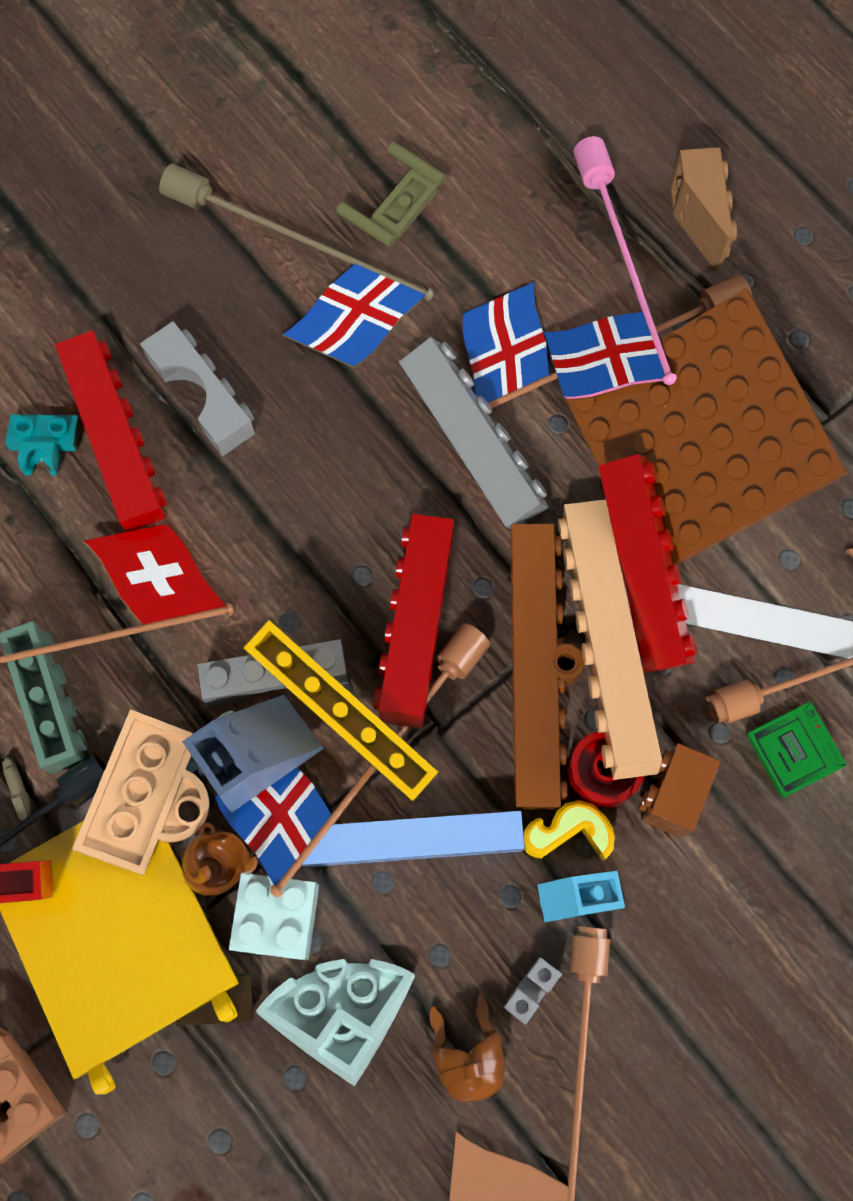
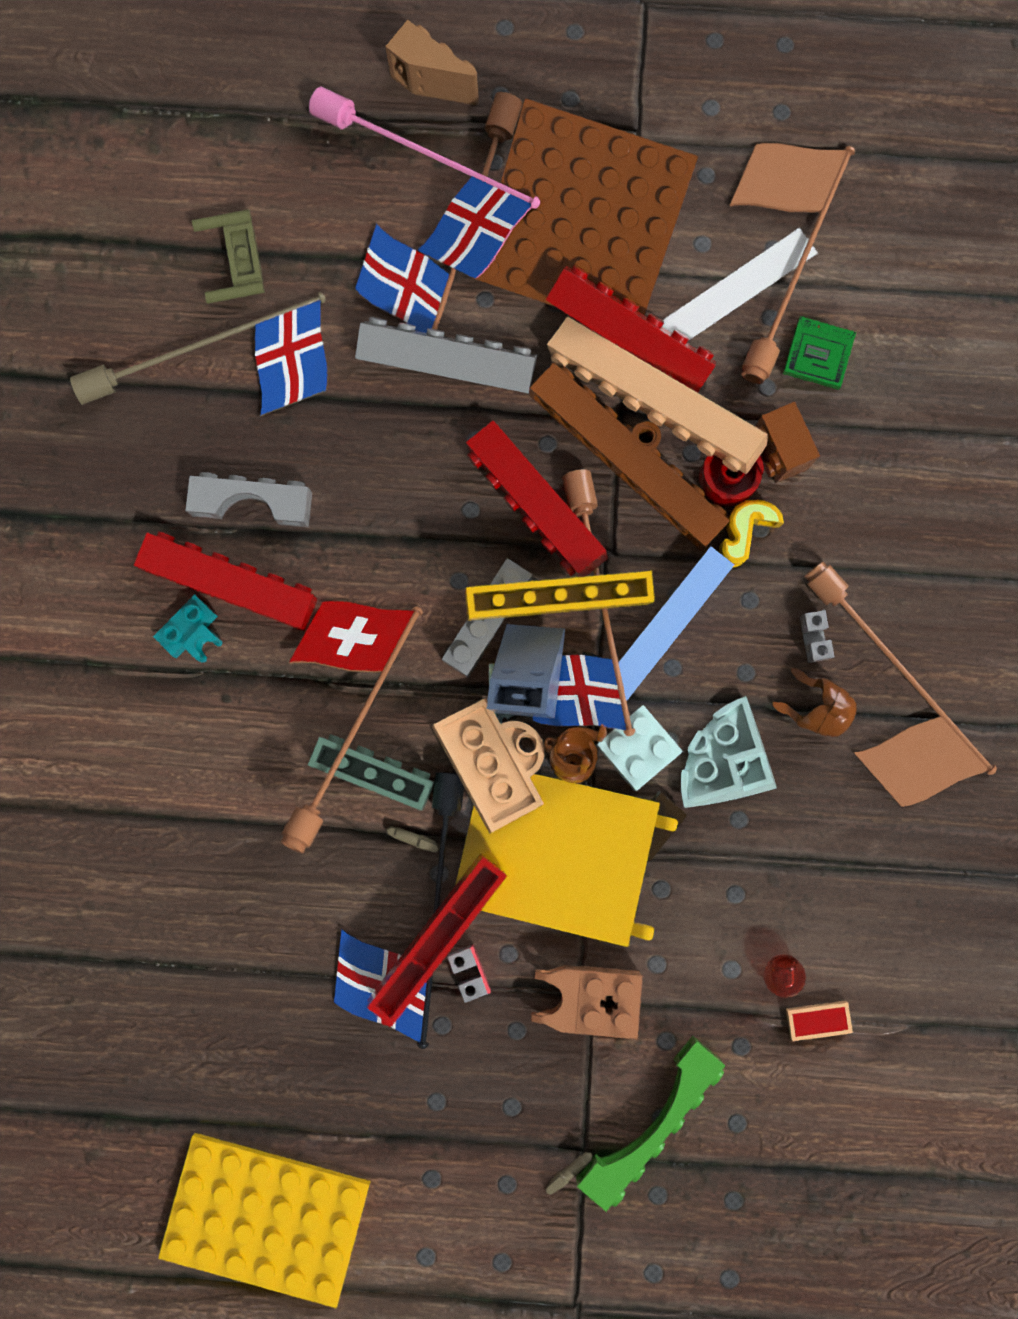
camera: 45 degrees left, 10 degrees up
(580, 896) = (789, 559): medium azure slope -> none

